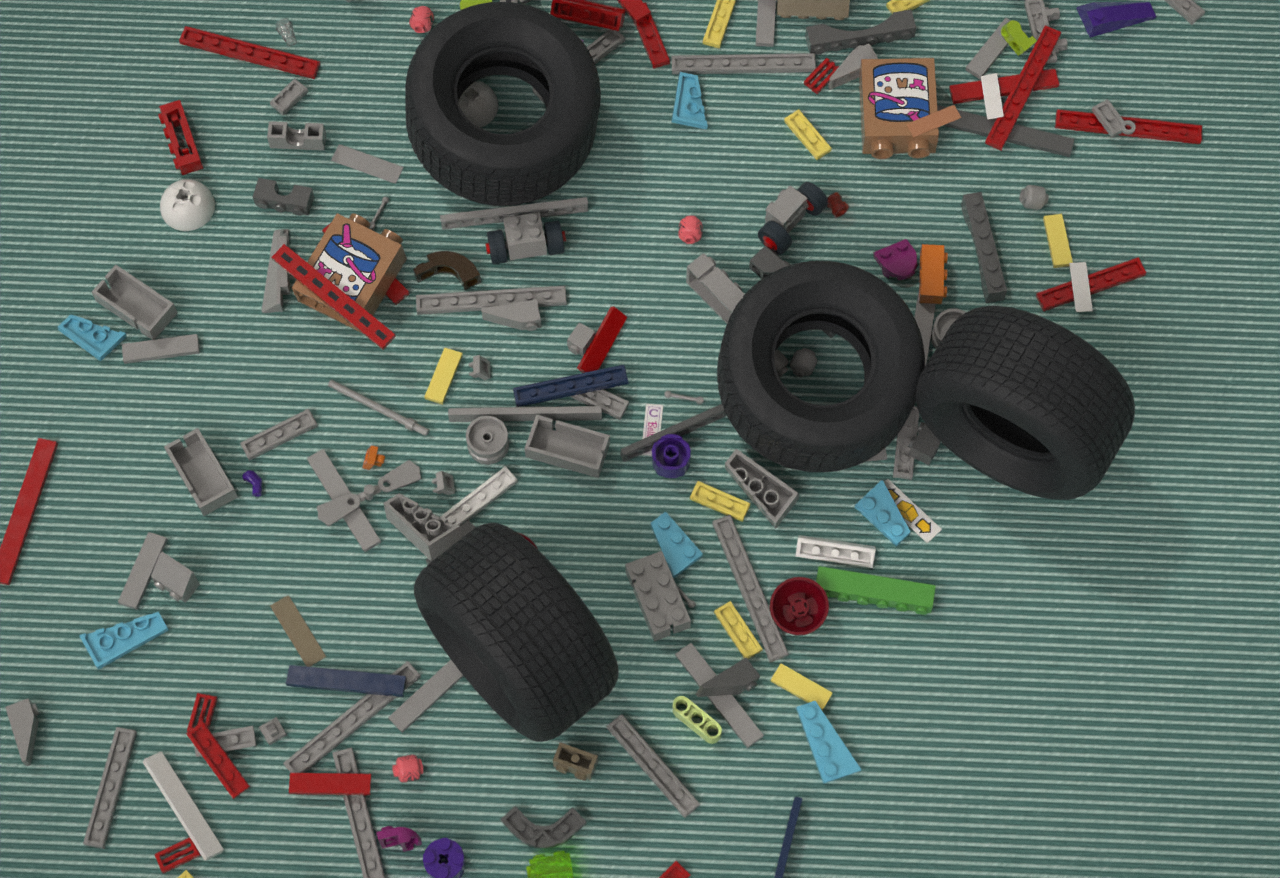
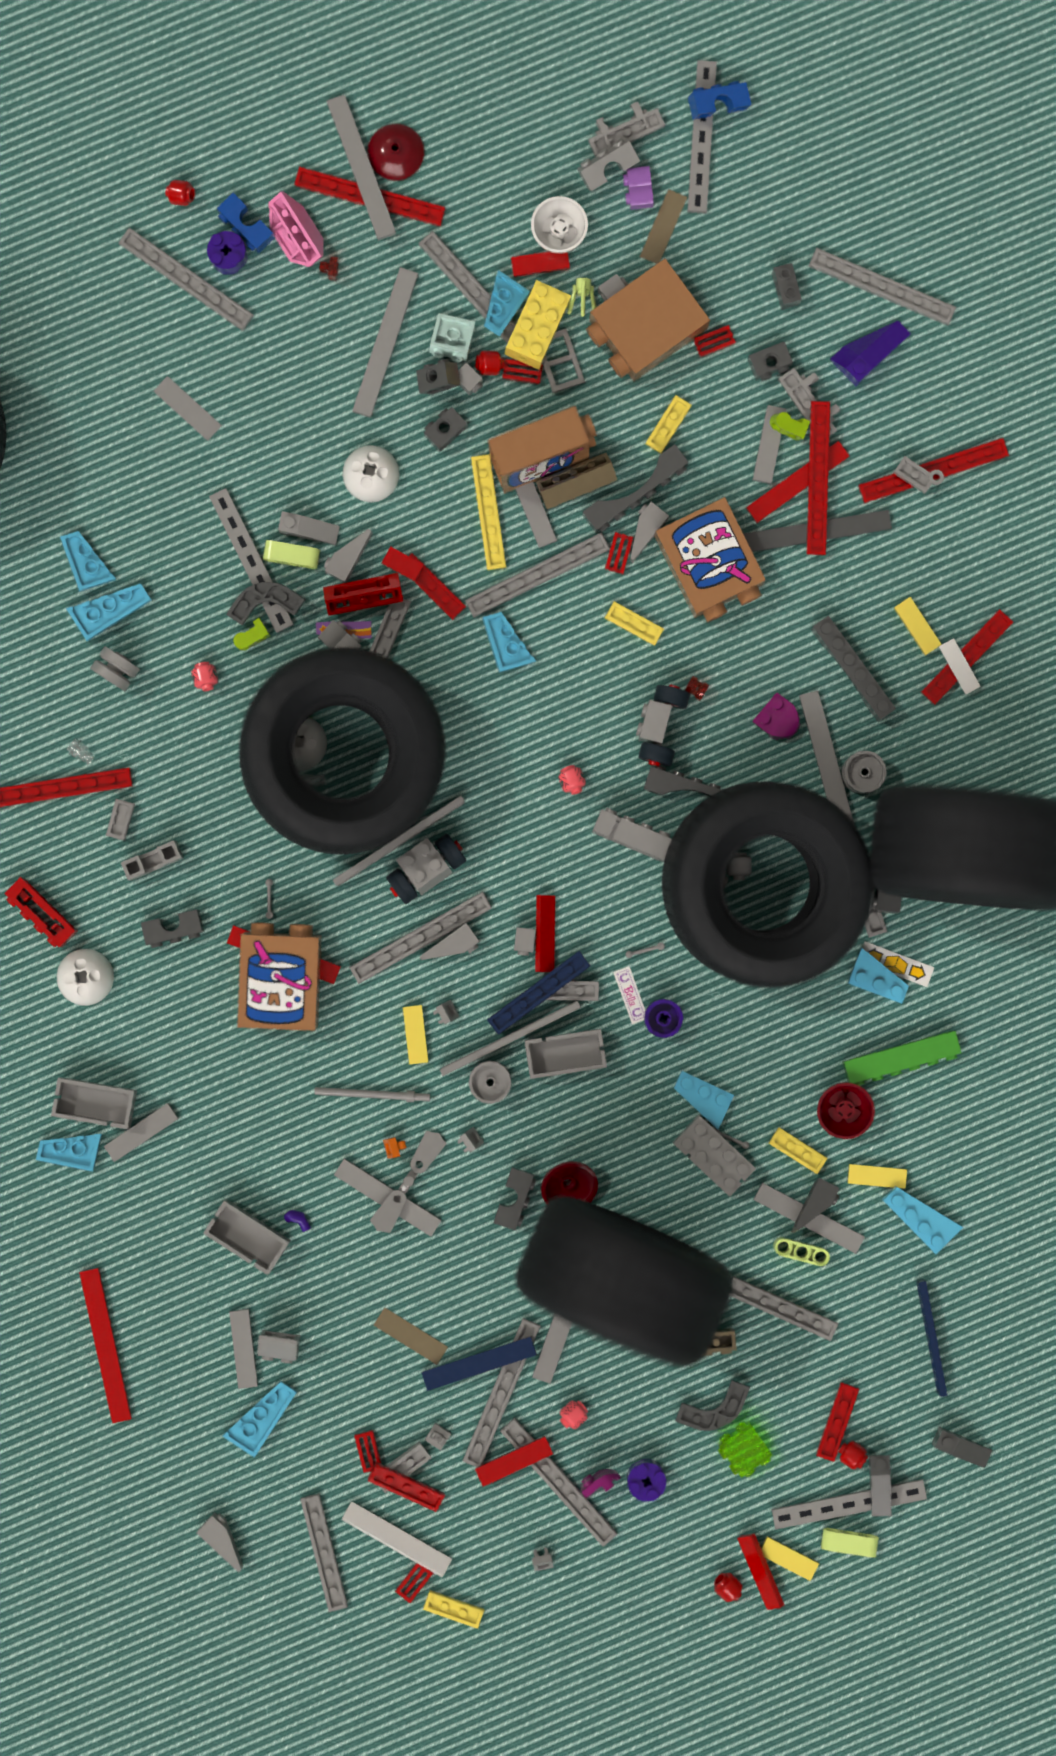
camera: 30 degrees left, 20 degrees up
(277, 278) = (207, 1003): light grey wedge -> none
(279, 434) = (295, 1162): light grey tile -> none
(333, 297) = (282, 1019): red tile -> none
(367, 163) = (231, 852): light grey sticker -> none
(422, 527) = (478, 1197): light grey wedge -> none
(449, 263) = (370, 919): dark brown arch -> none
(481, 497) = (502, 1152): white tile -> none
(681, 429) = (652, 993): dark grey tile -> none
(720, 501) = (725, 1036): light yellow tile -> none
(750, 588) = (789, 1105): light grey tile -> none
(763, 488) = (763, 1010): light grey wedge -> none
(835, 551) = (849, 1034): white slope -> none
(932, 274) = (819, 721): orange brick -> none
(933, 120) = (754, 567): nougat sticker -> none
(992, 96) = (792, 502): white sticker -> none
(1033, 197) = (877, 592): light grey head -> none

